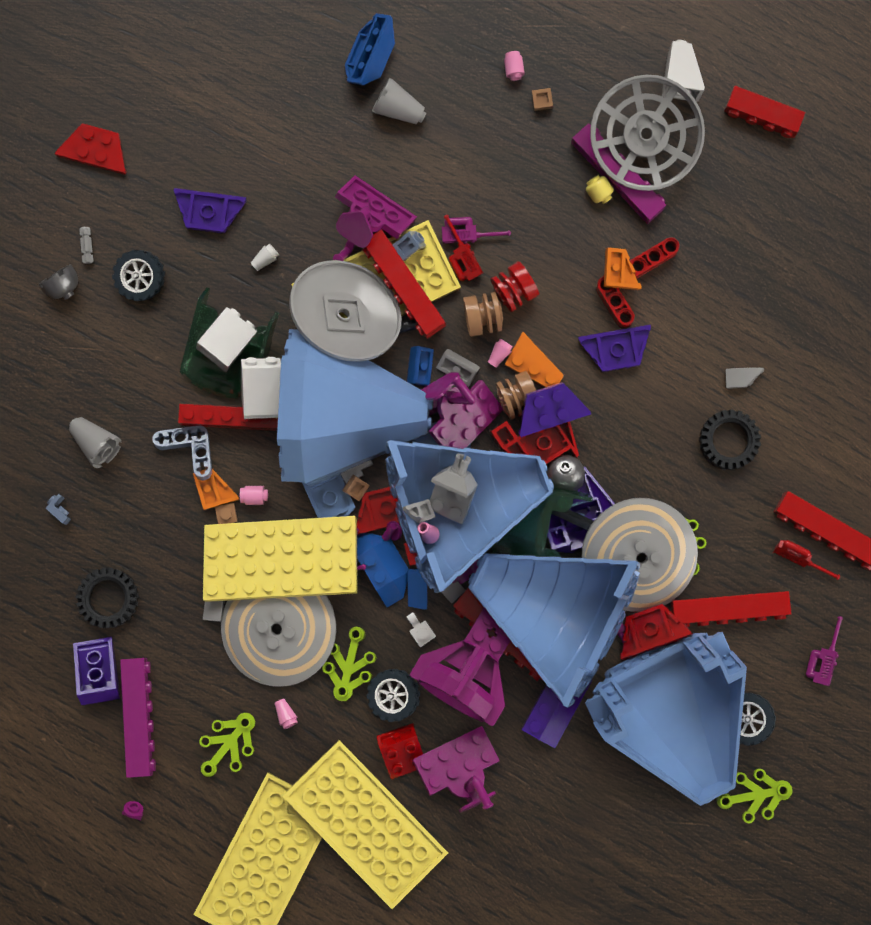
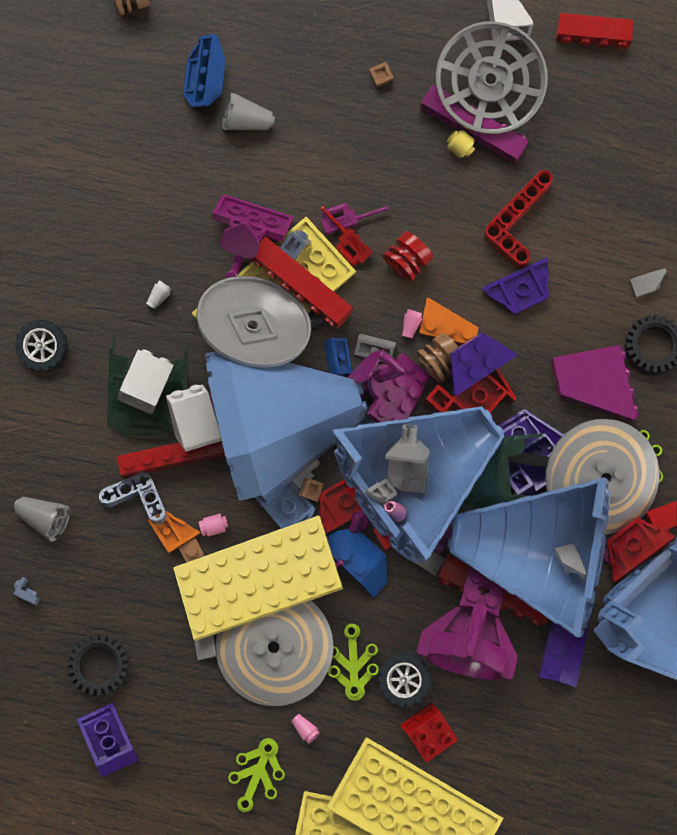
camera: 20 degrees left, 5 degrees down
(137, 717) = (160, 774): magenta brick -> none
(208, 210) = (90, 265): dark purple wing -> none
(416, 590) = (398, 571): blue slope -> none
(421, 632) = (413, 611): white plate -> none
(459, 766) = (491, 732): magenta plate -> none
(482, 314) = (384, 290): medium nougat wheel -> none
(514, 65) = (345, 50): bright pink brick -> none
(566, 473) = (510, 418): flat silver cylinder -> none
(584, 627) = (570, 560): none -> light grey slope
(619, 270) = (503, 213): orange wing -> none
(662, 460) = (597, 381): none -> magenta slope

